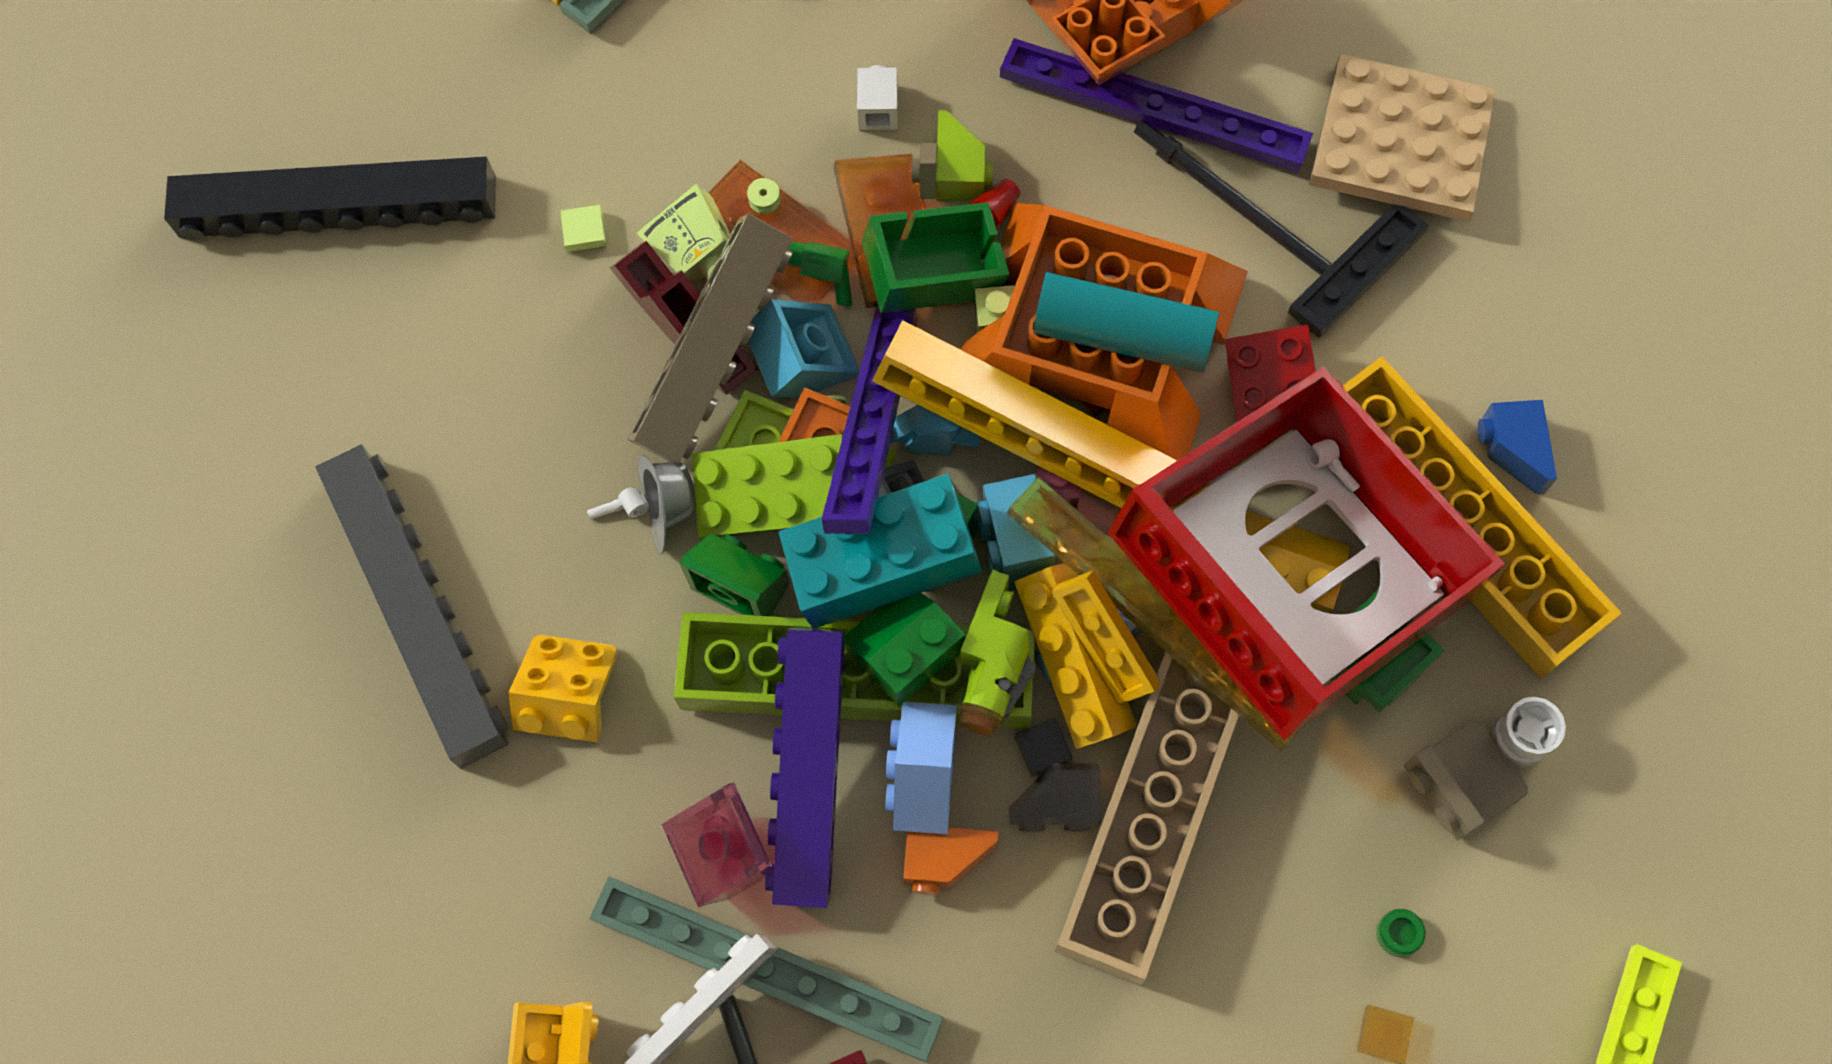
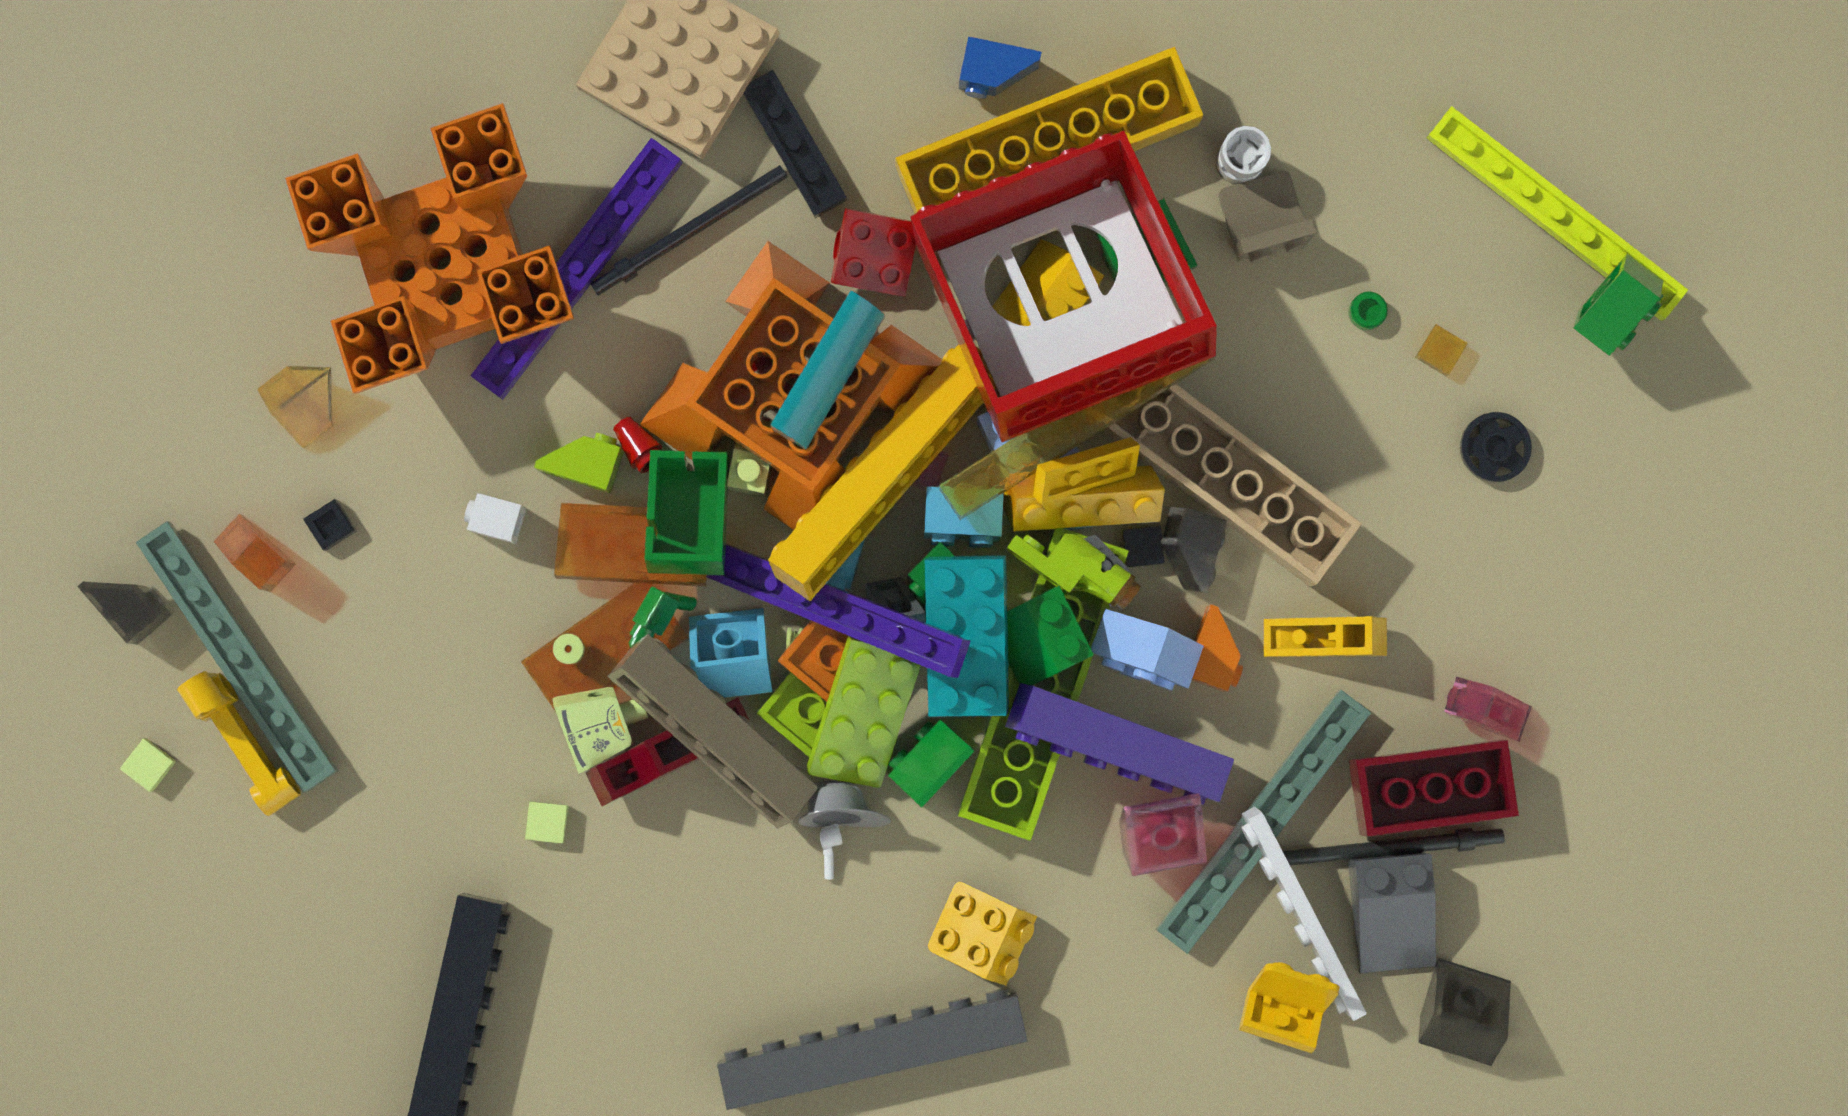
camera: 85 degrees left, 15 degrees up
(925, 170) = (590, 496): dark tan plate -> none
(1001, 985) = (1325, 637): none -> yellow slope
(1328, 453) = (971, 233): white hand -> none

